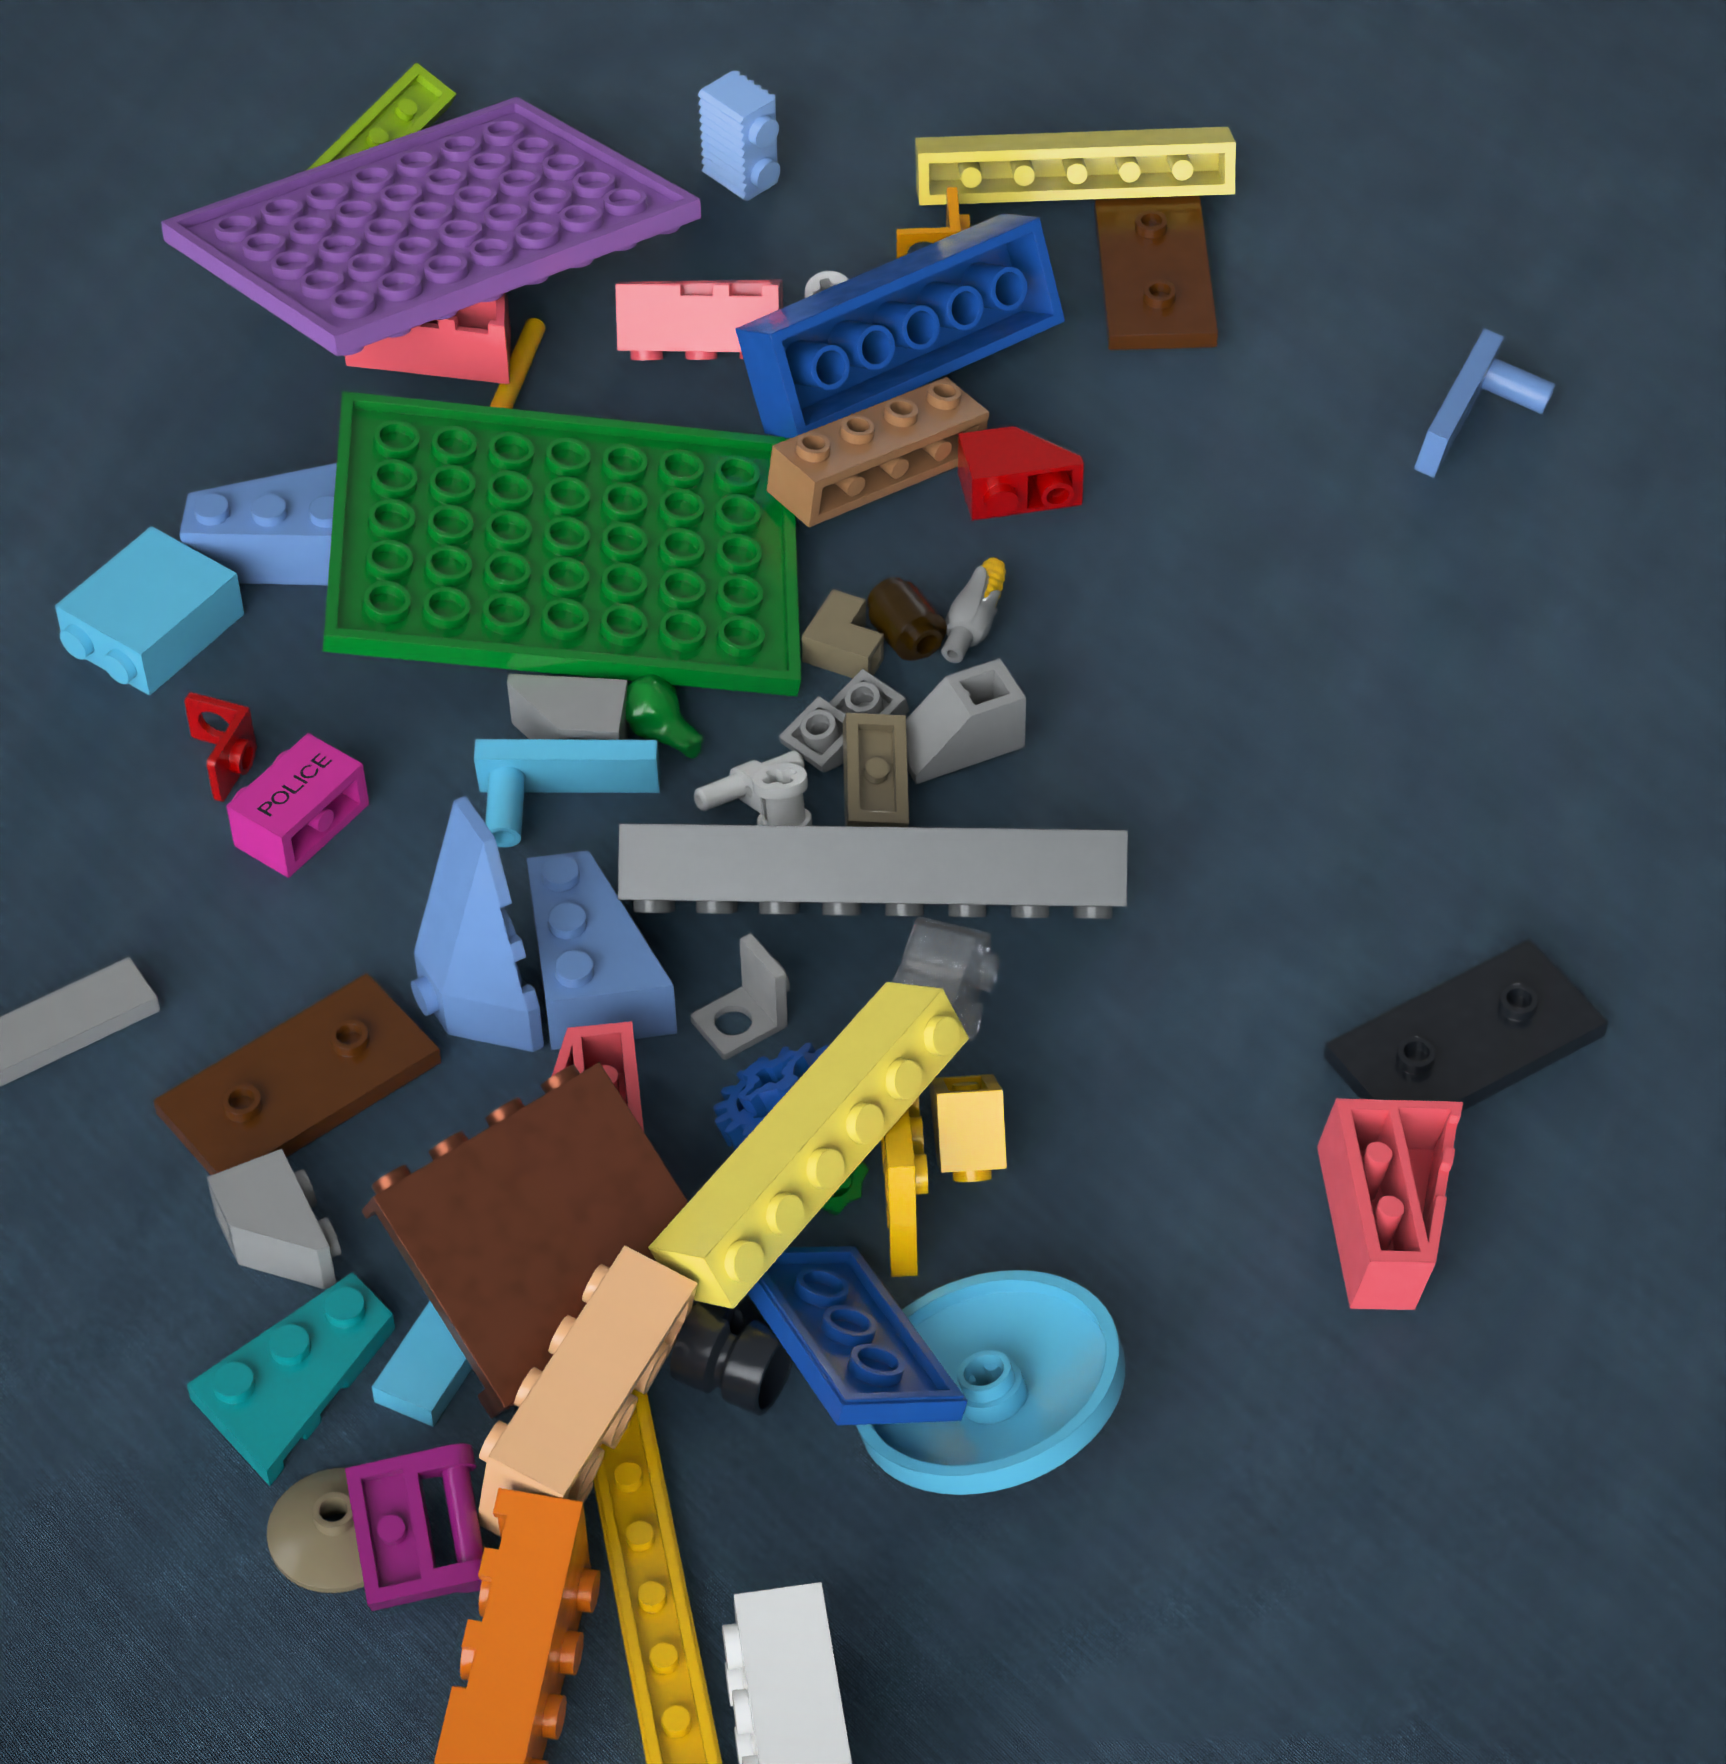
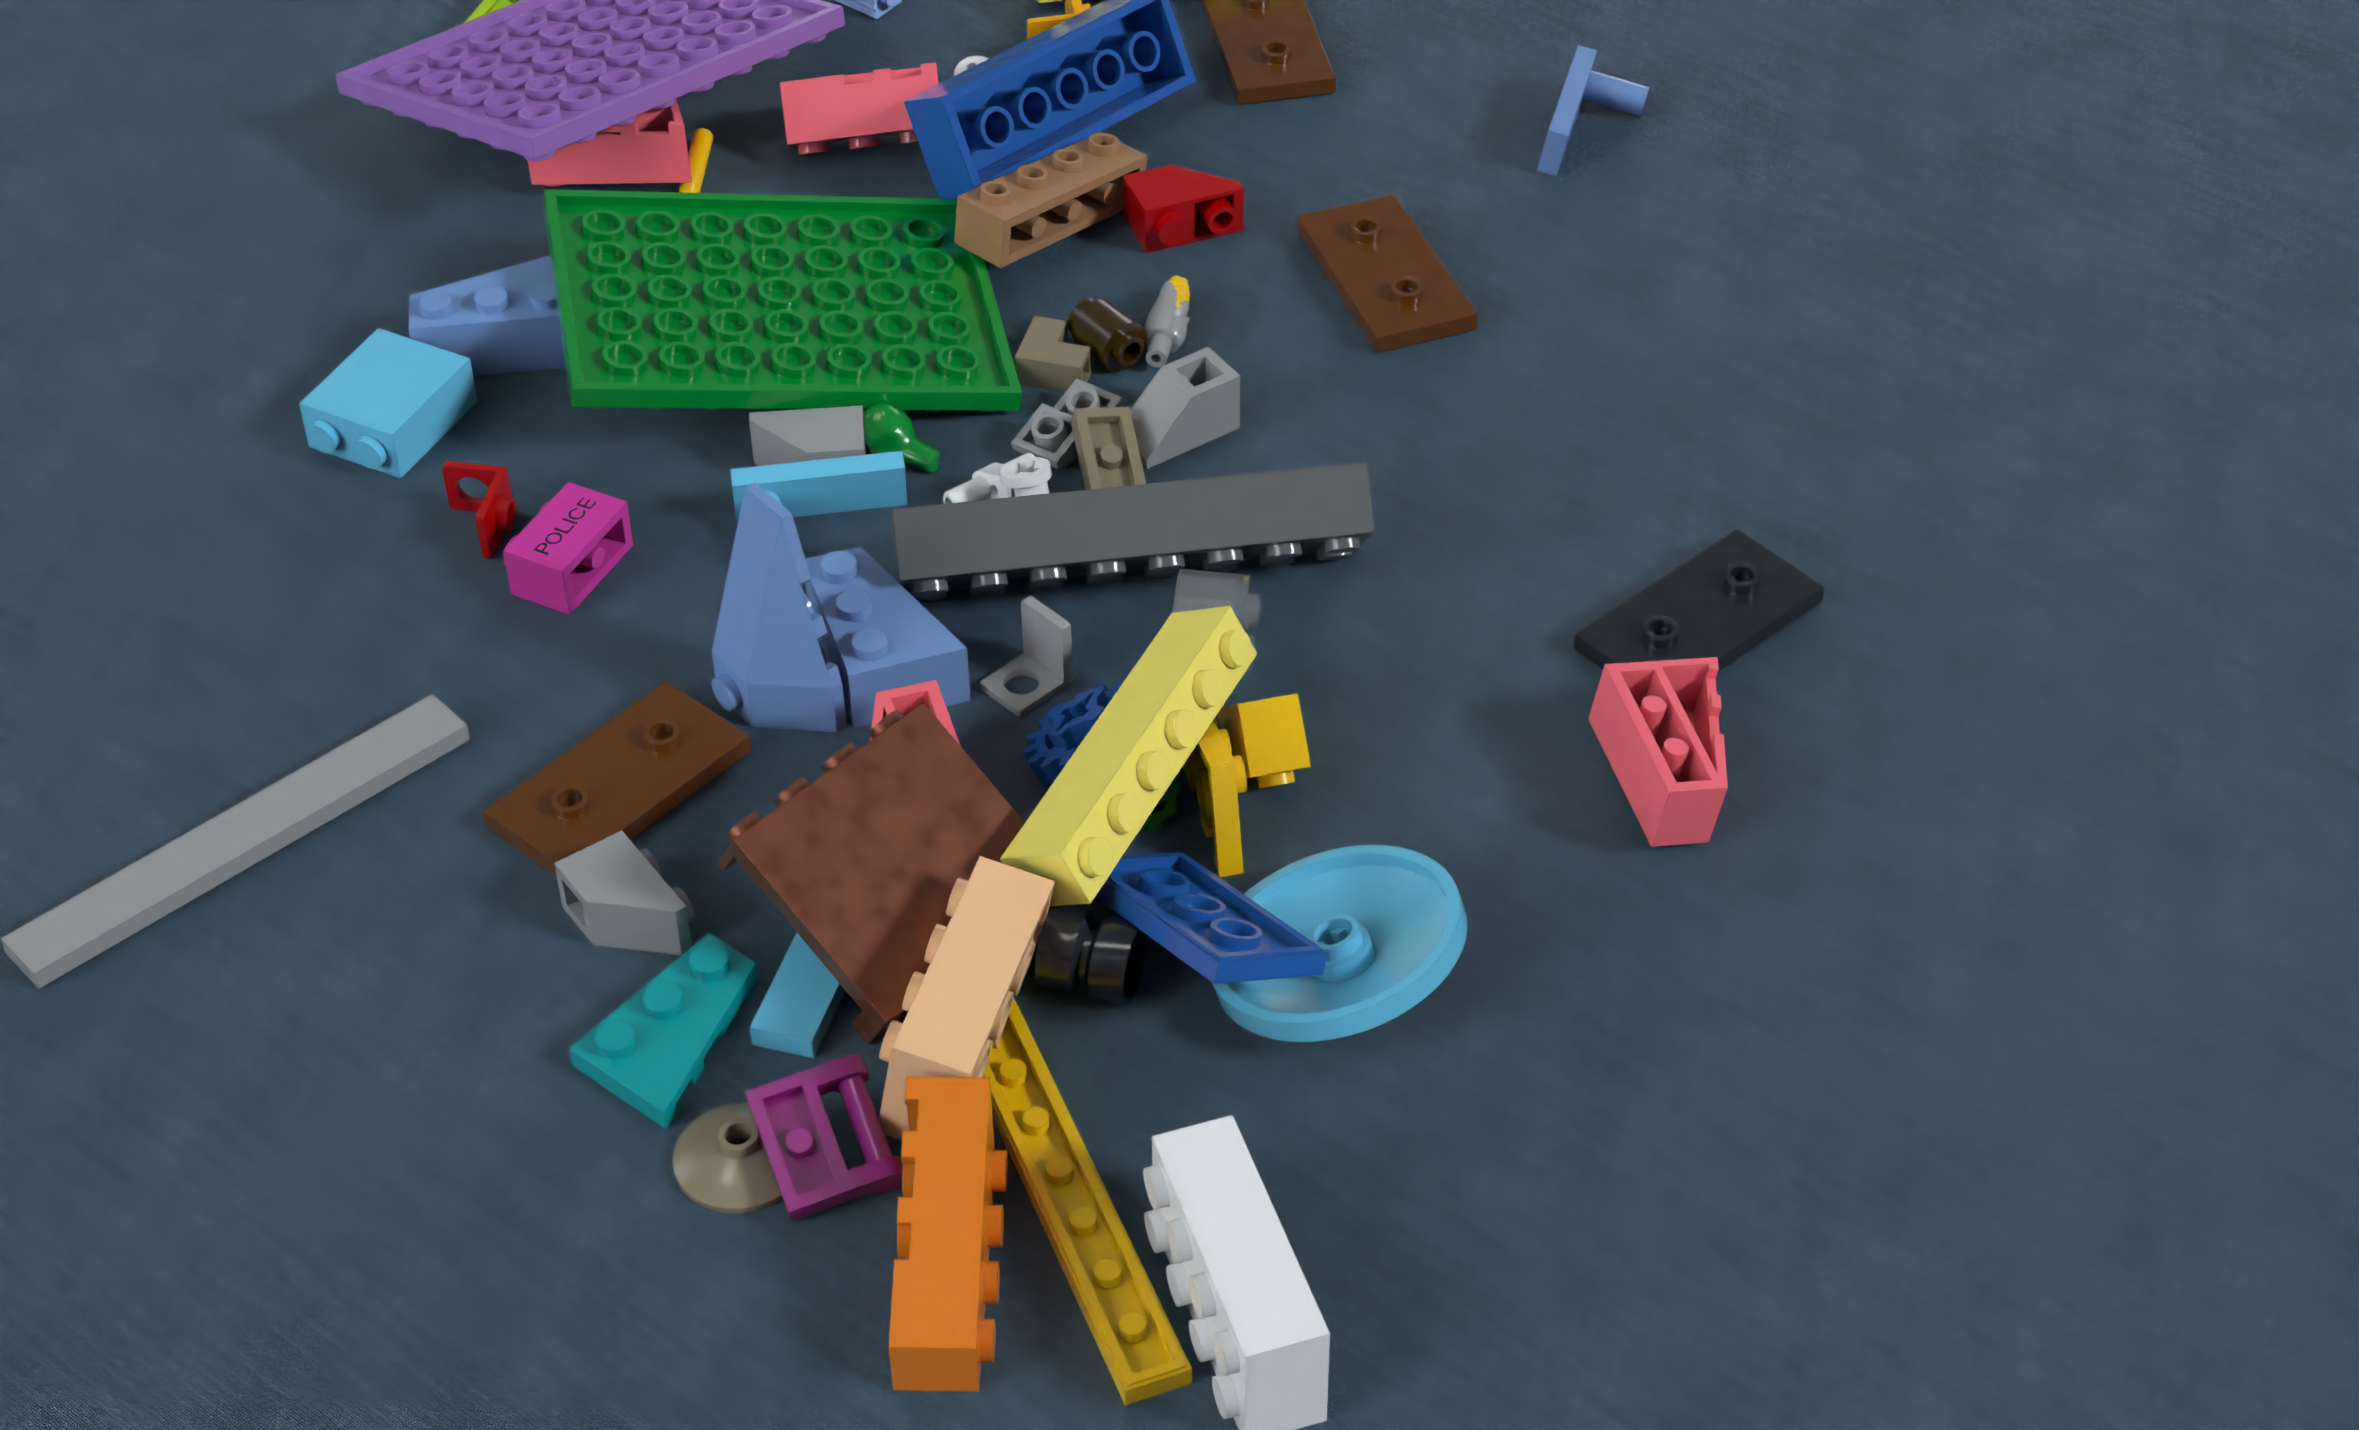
camera: 10 degrees left, 5 degrees down
(1221, 578) = (1386, 273): none -> reddish brown plate

